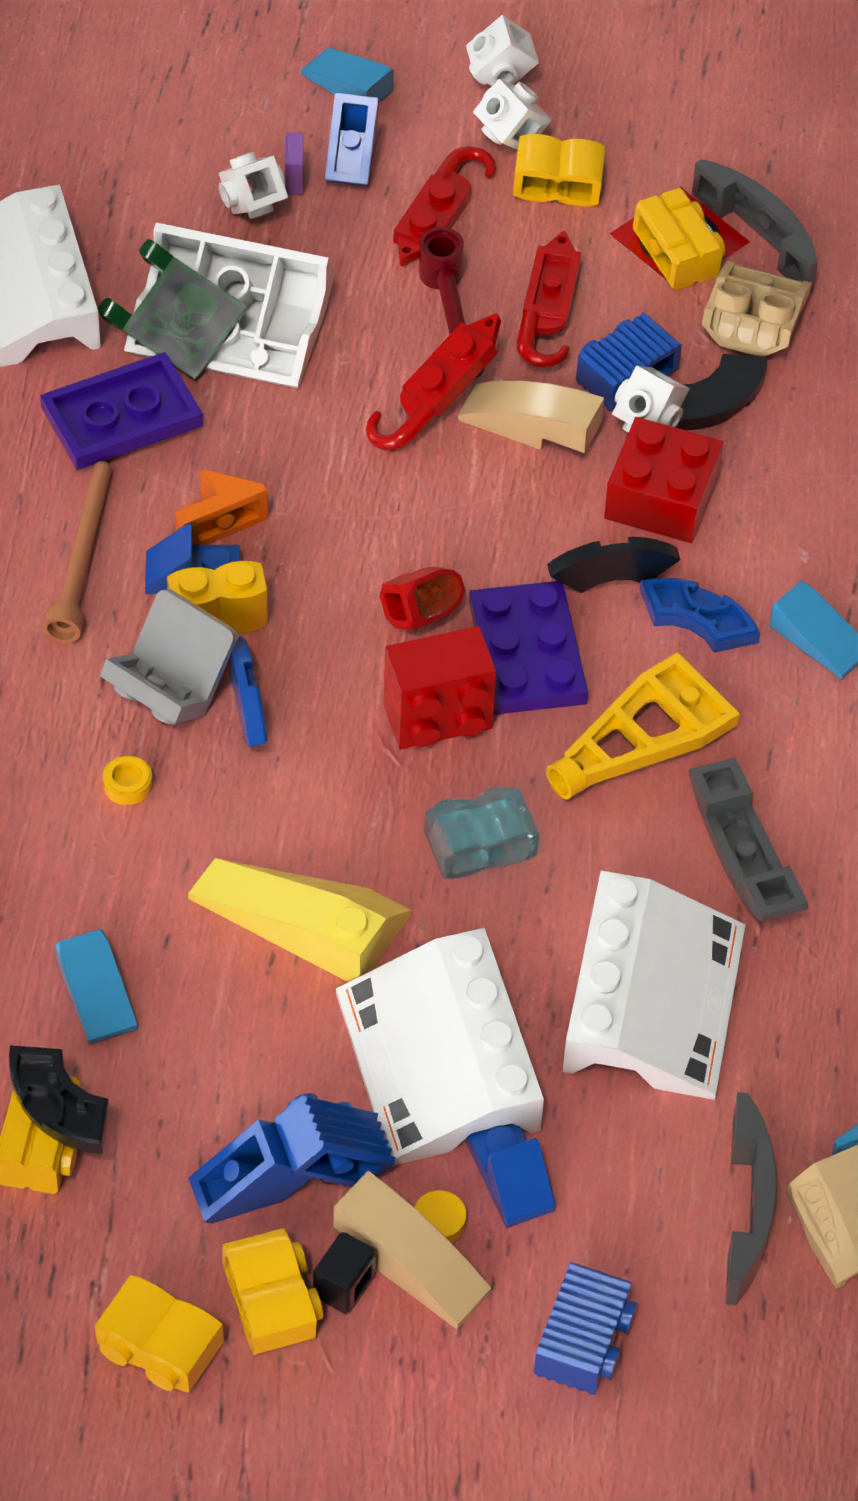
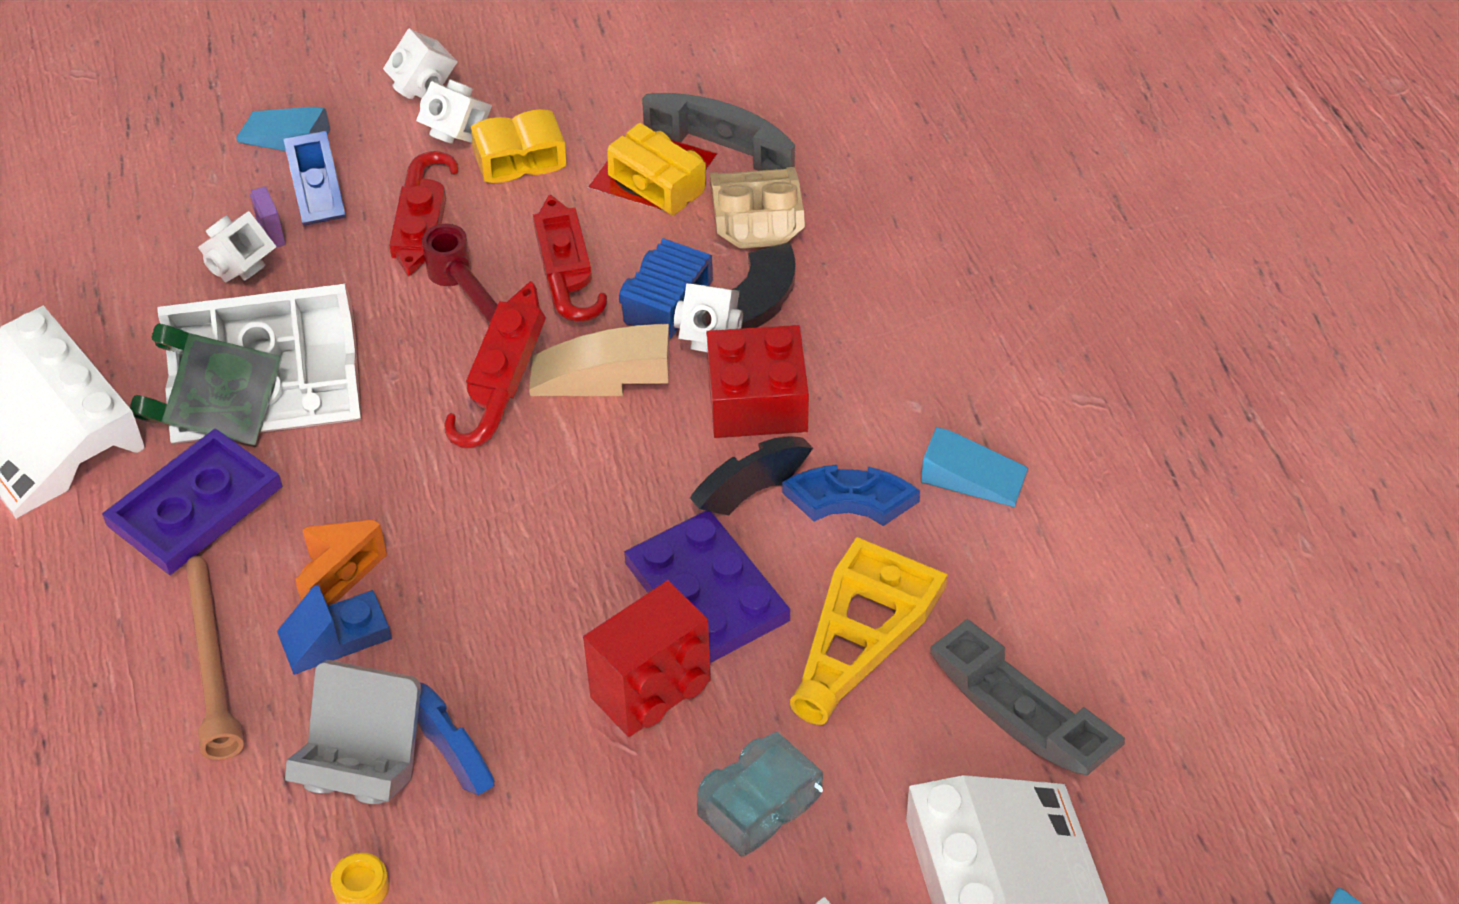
camera: 20 degrees left, 5 degrees down
(230, 593) = (388, 640): yellow brick -> none
(421, 596) = (581, 575): red rock -> none

